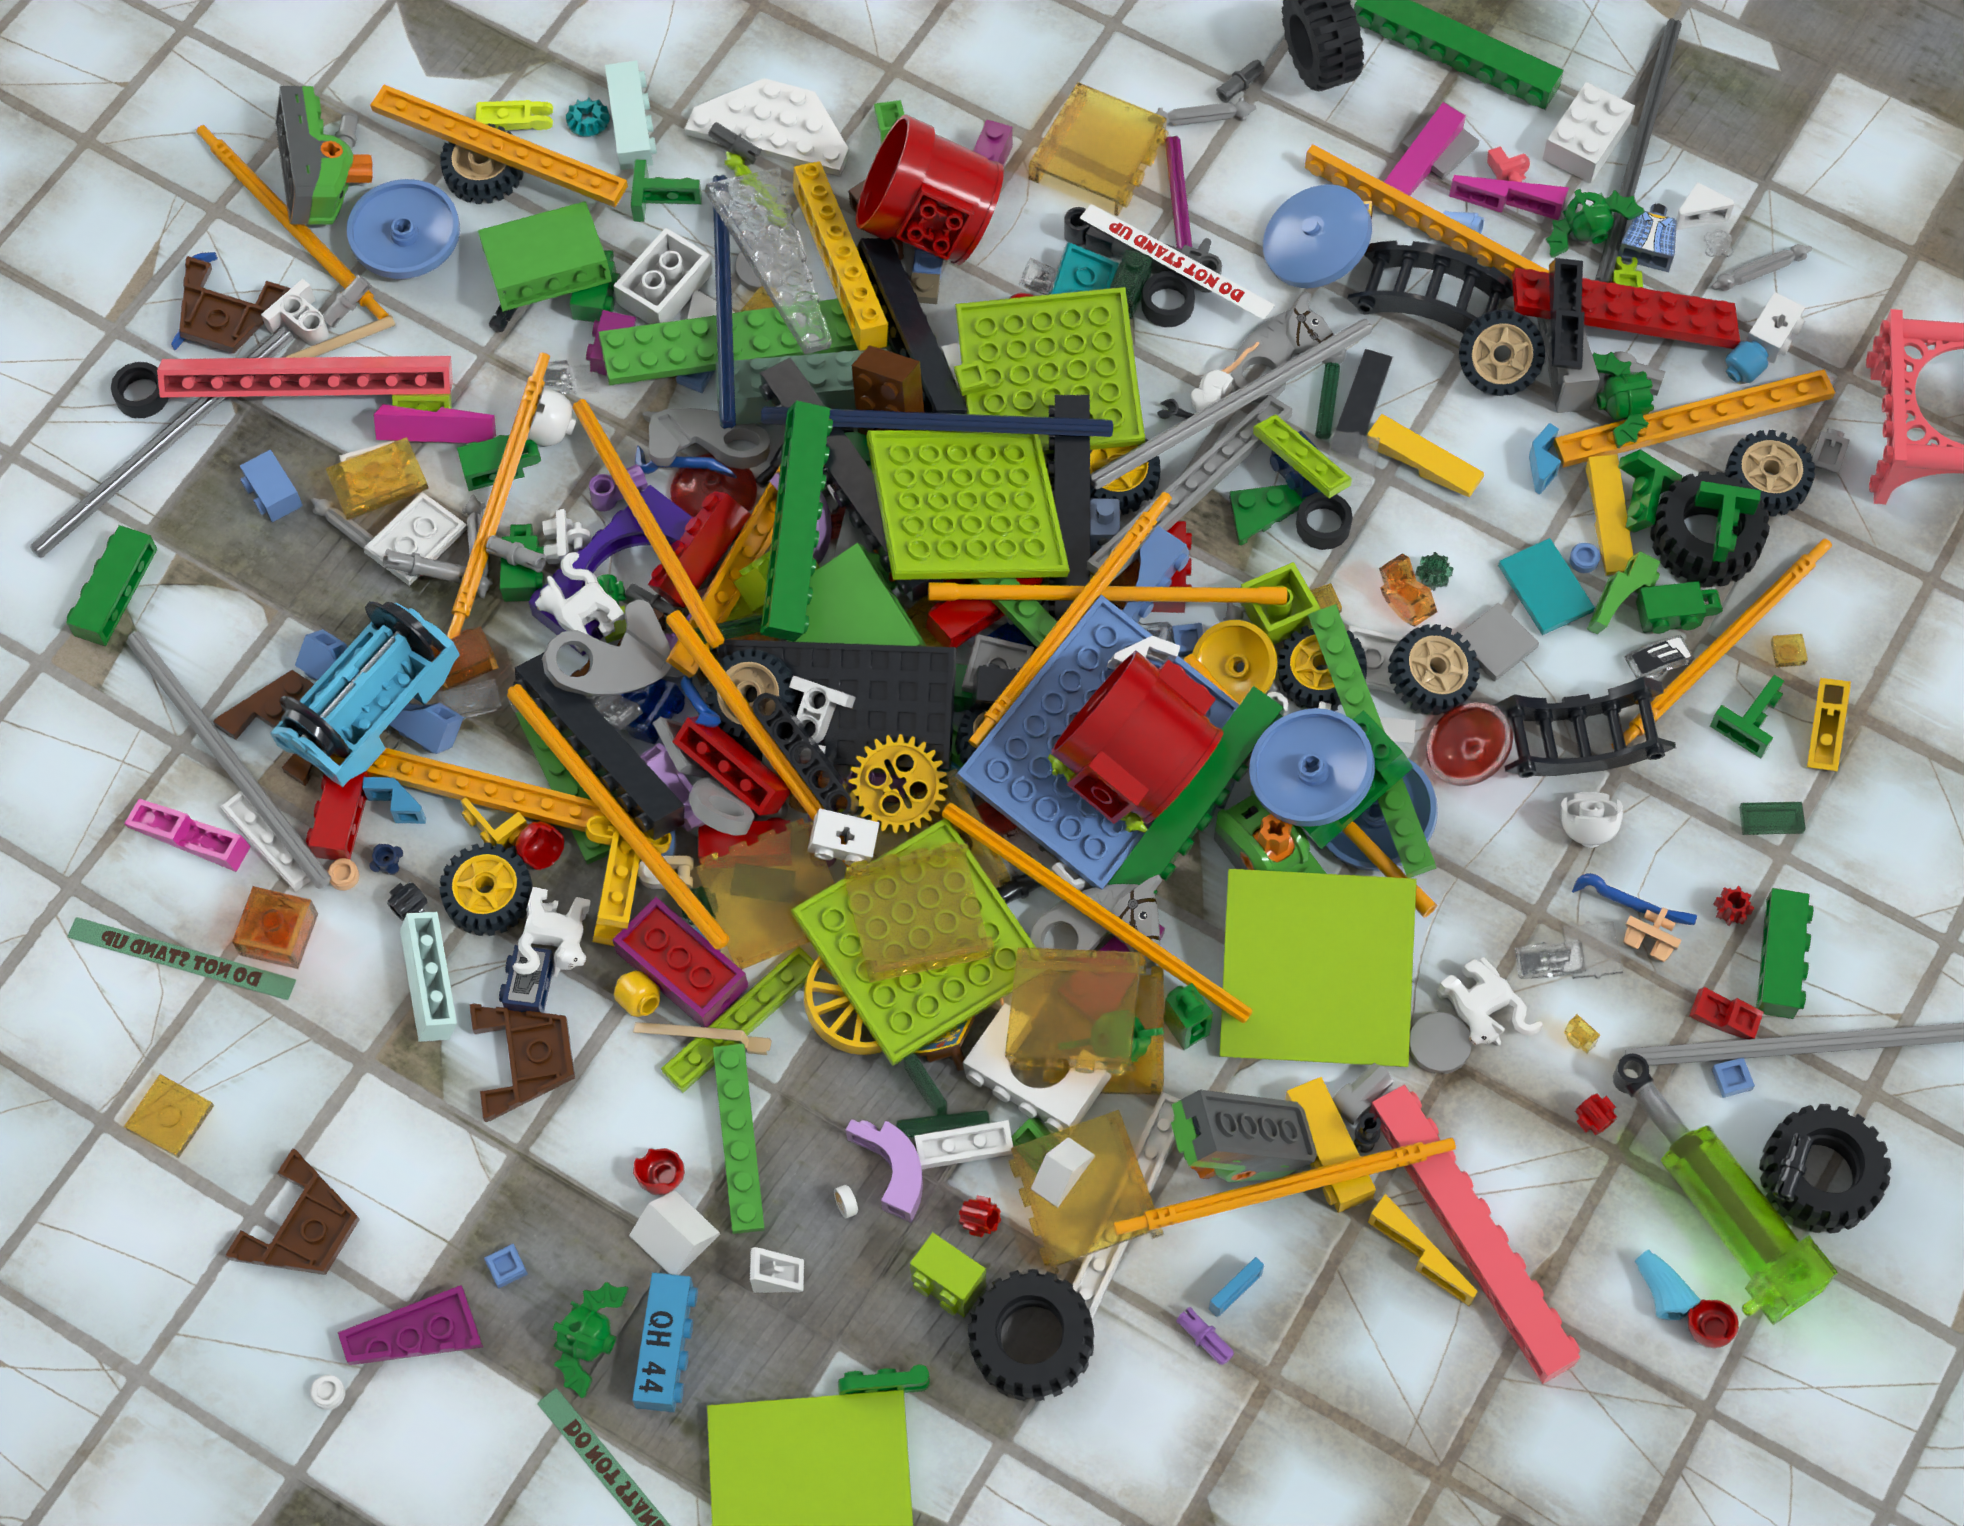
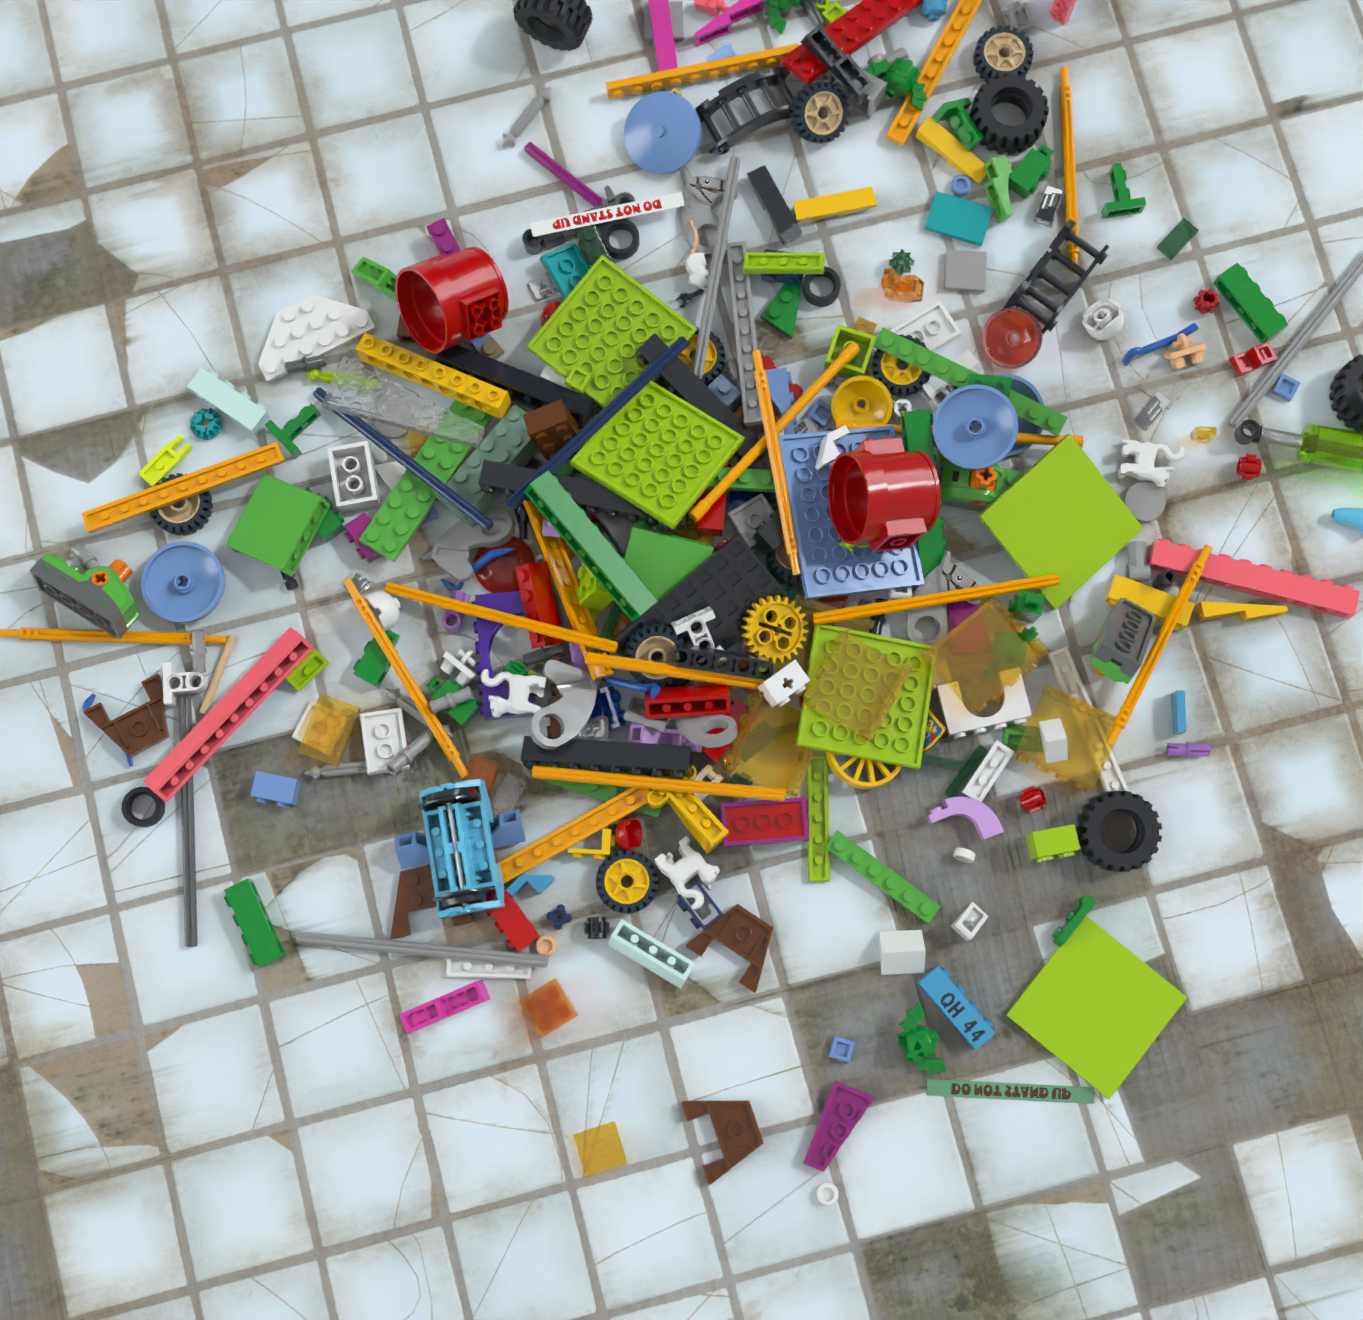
camera: 45 degrees left, 15 degrees up
(182, 958) = (513, 1068): clear green sticker -> none
(428, 426) = (330, 667): dark pink slope -> none
(637, 993) = (758, 858): yellow head -> none
(659, 1171) = (865, 931): red hair -> none
(754, 1045) = (837, 824): tan piece -> none
(1100, 145) = (496, 185): clear yellow panel -> none
(1239, 81) = (526, 79): dark grey axle -> none
(1327, 401) = (755, 219): clear green axle -> none
(1448, 655) = (943, 320): wheel -> none
(1542, 463) = (892, 154): dark azure slope -> none
(1729, 502) = (1020, 100): green bracket -> none
(1789, 650) = (1102, 143): clear yellow plate -> none
(1829, 724) = (1157, 163): yellow slope -> none

